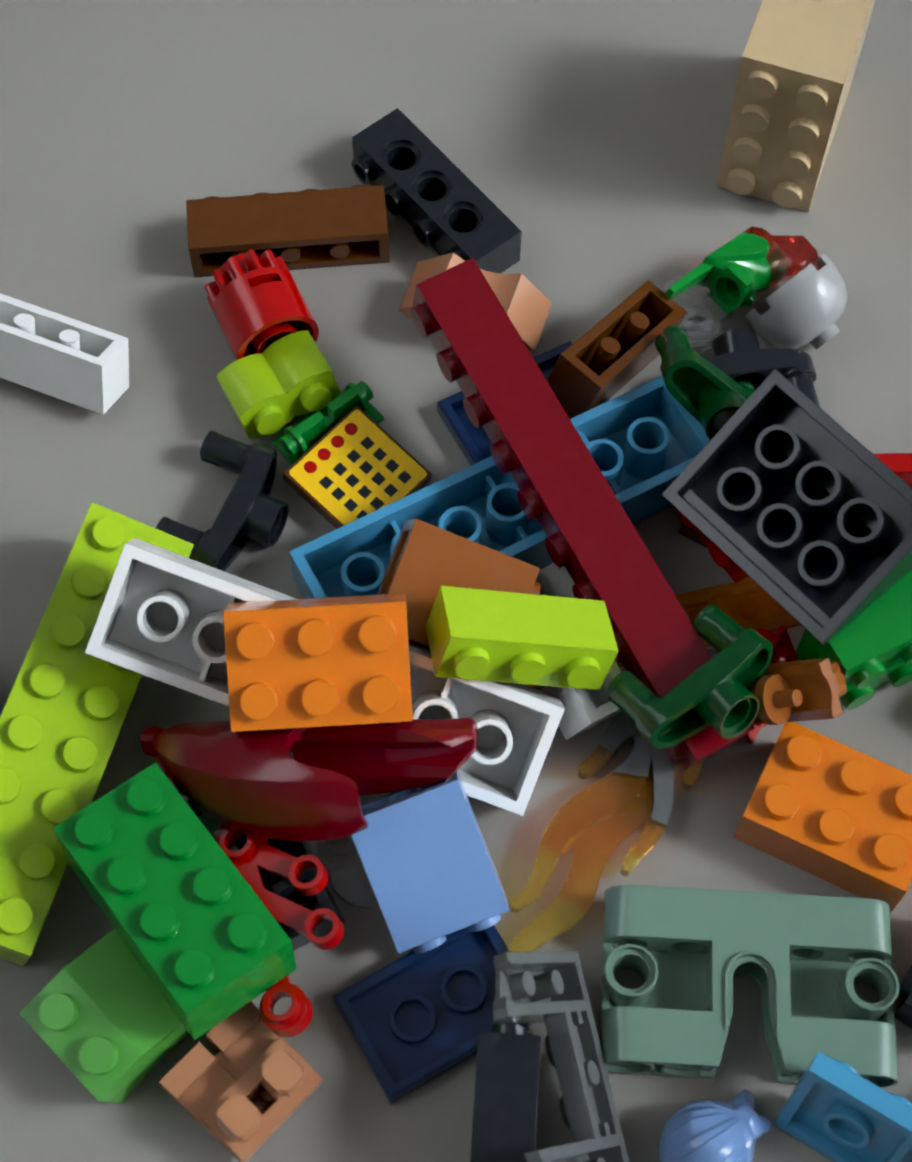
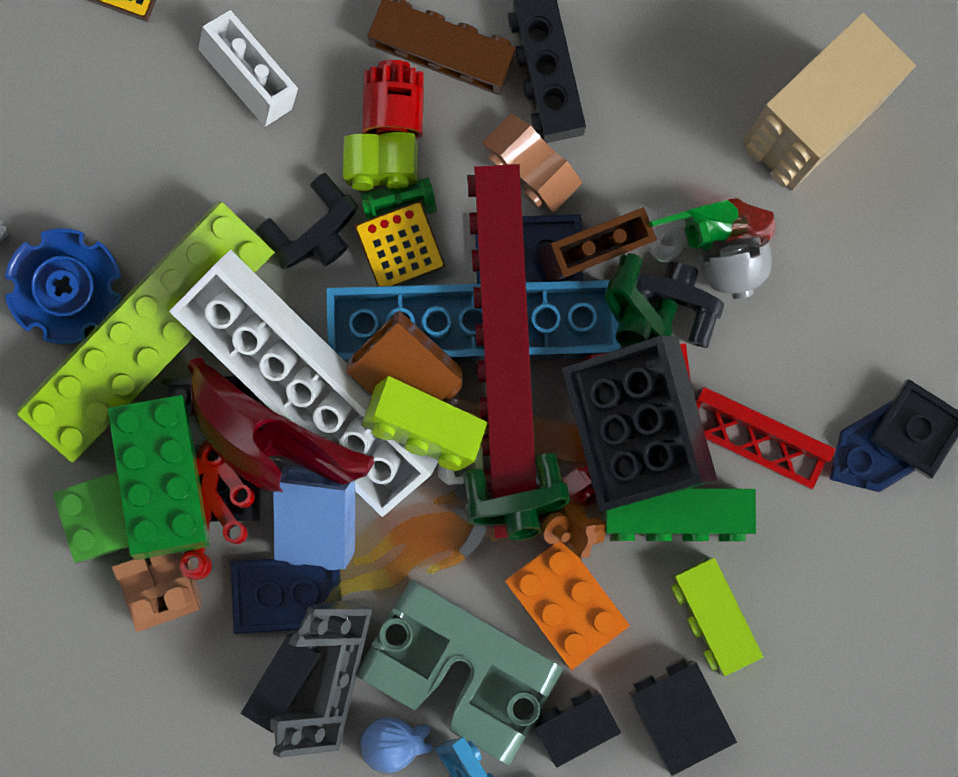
camera: 25 degrees right, 20 degrees up
(318, 662) = (296, 387): orange brick -> none

